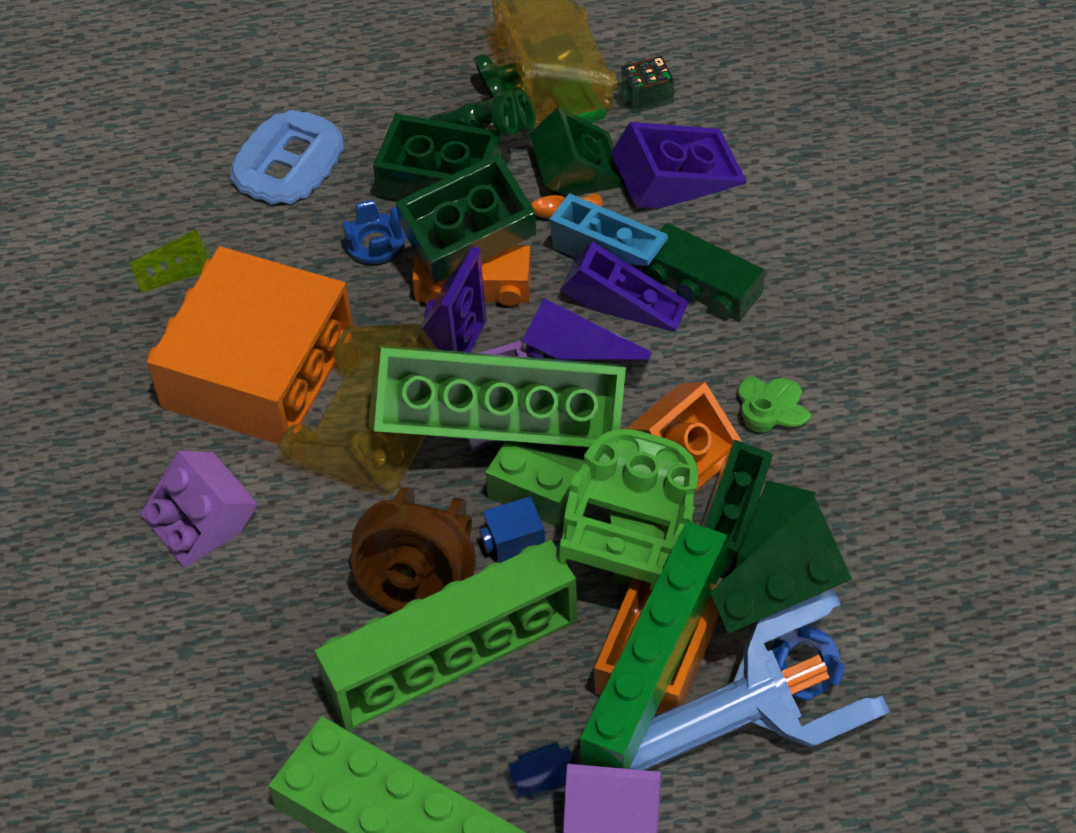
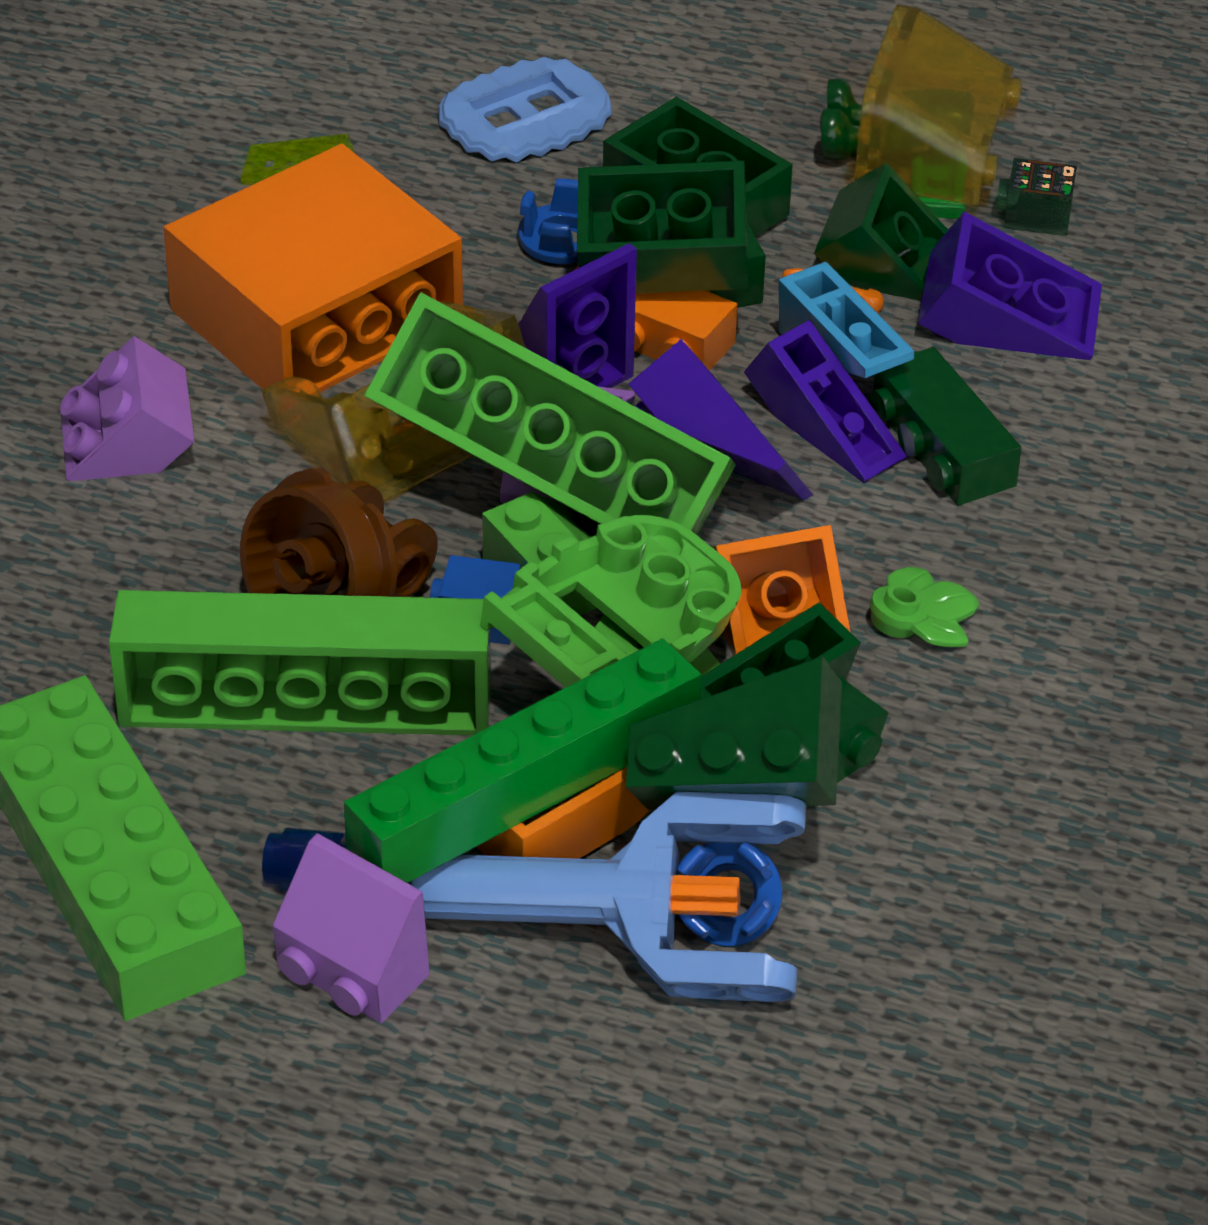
camera: 25 degrees right, 10 degrees down
(507, 110) = (809, 144): dark green piece -> none

